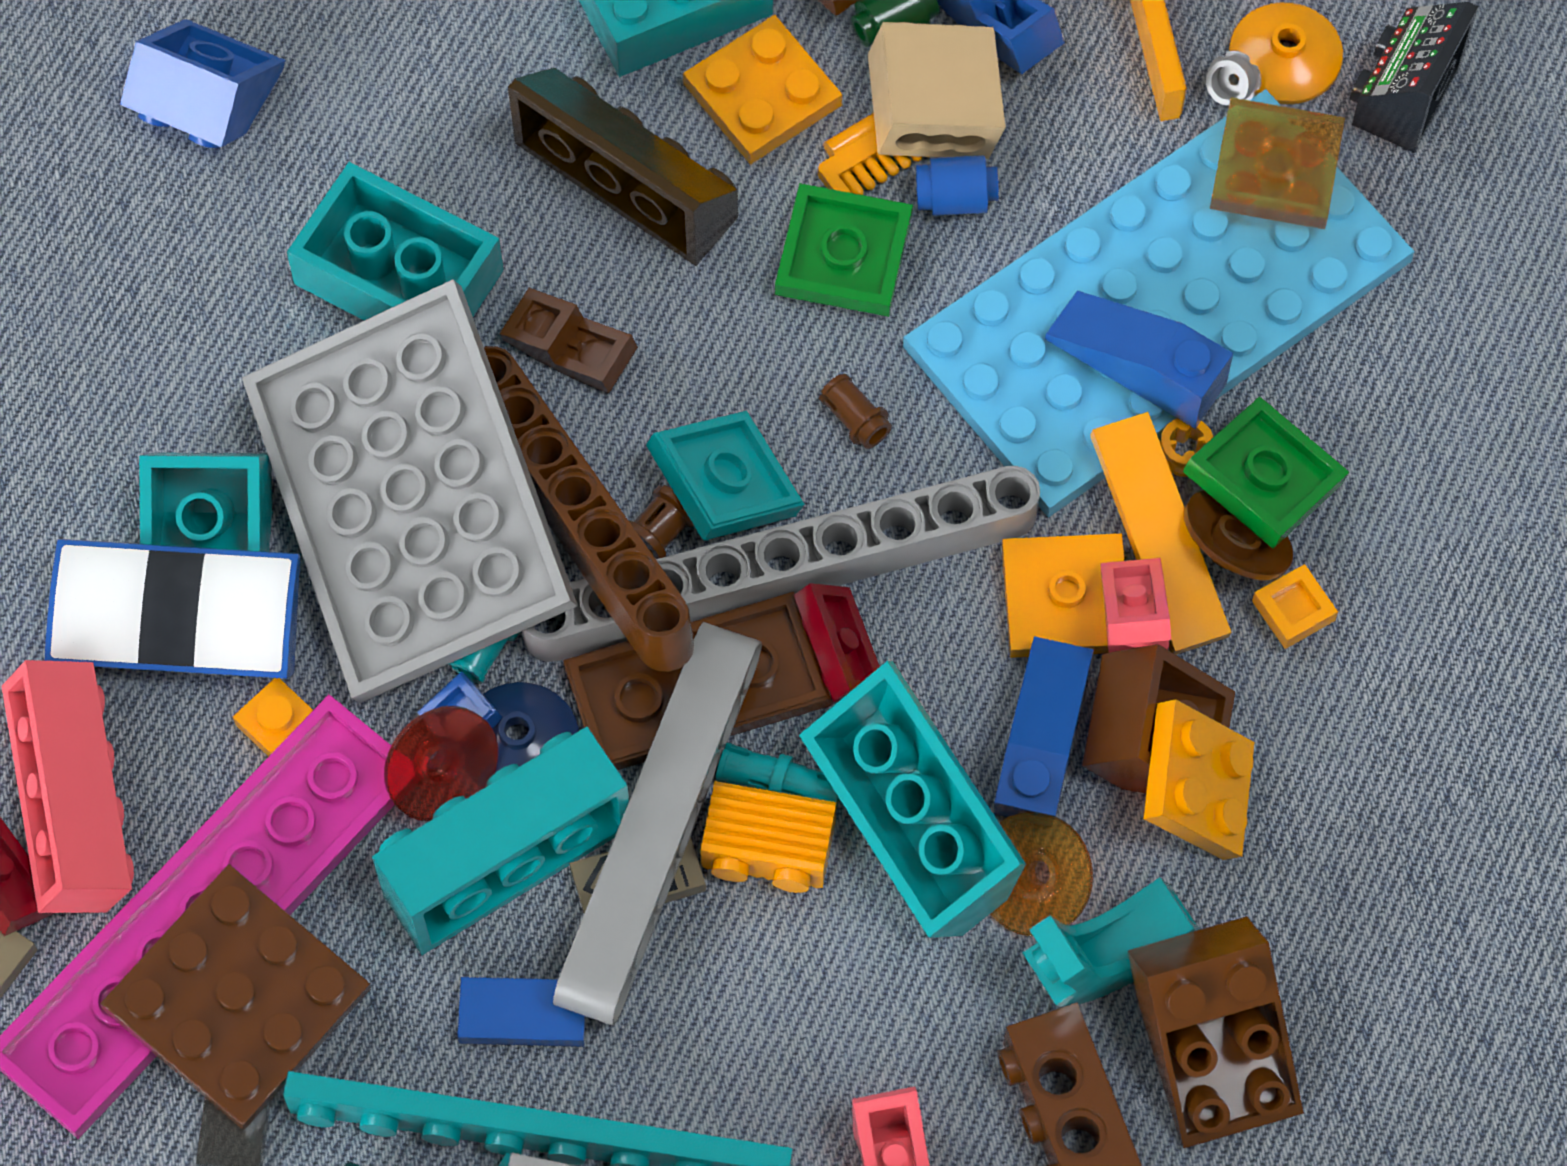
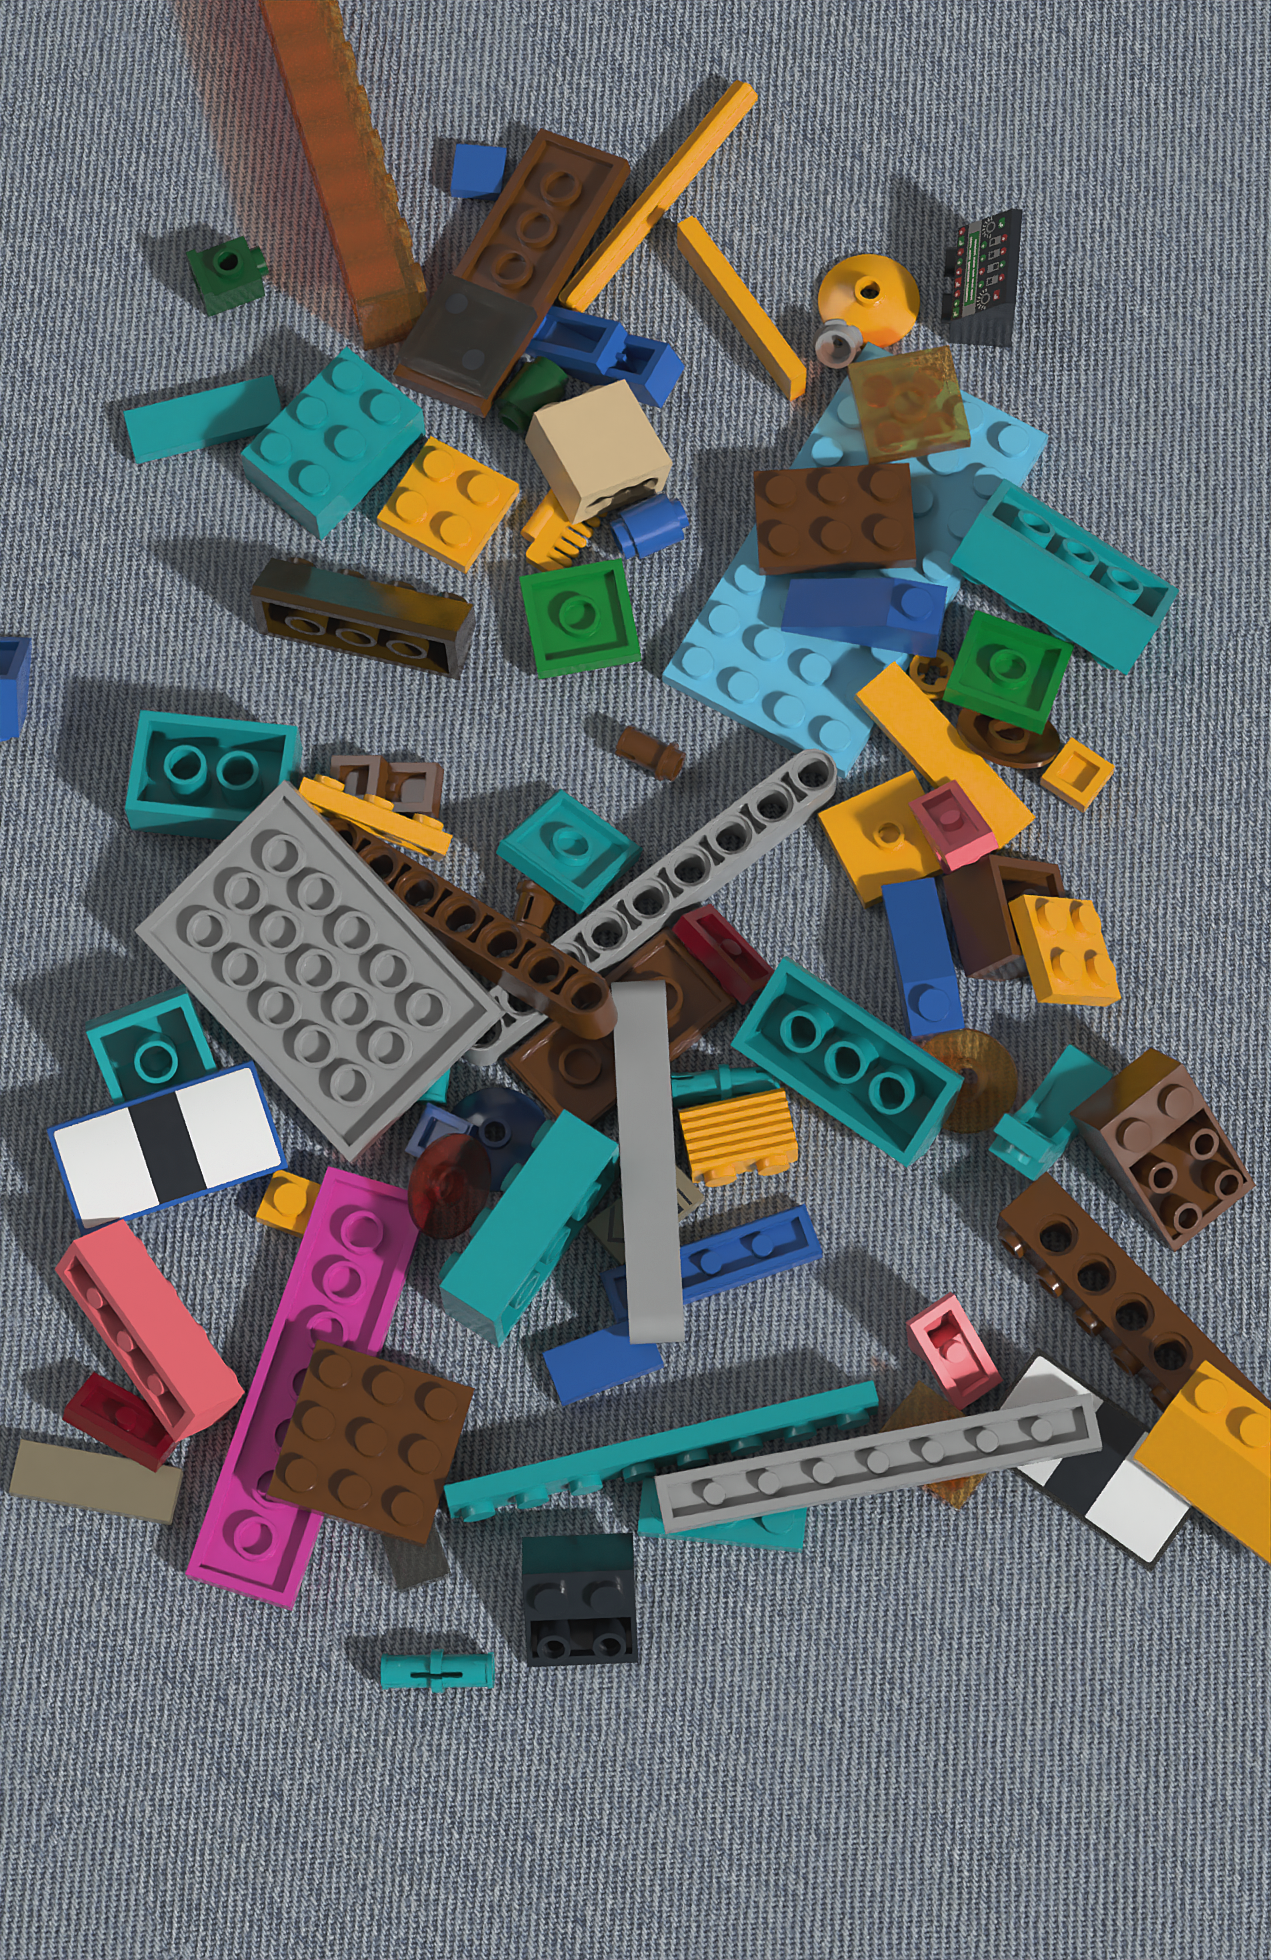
camera: 20 degrees left, 5 degrees up
(540, 362) = (375, 816): none -> light orange plate
(714, 961) = (732, 1258): none -> blue tile
(1150, 248) = (834, 519): none -> reddish brown plate
(1366, 397) = (1064, 577): none -> teal slope

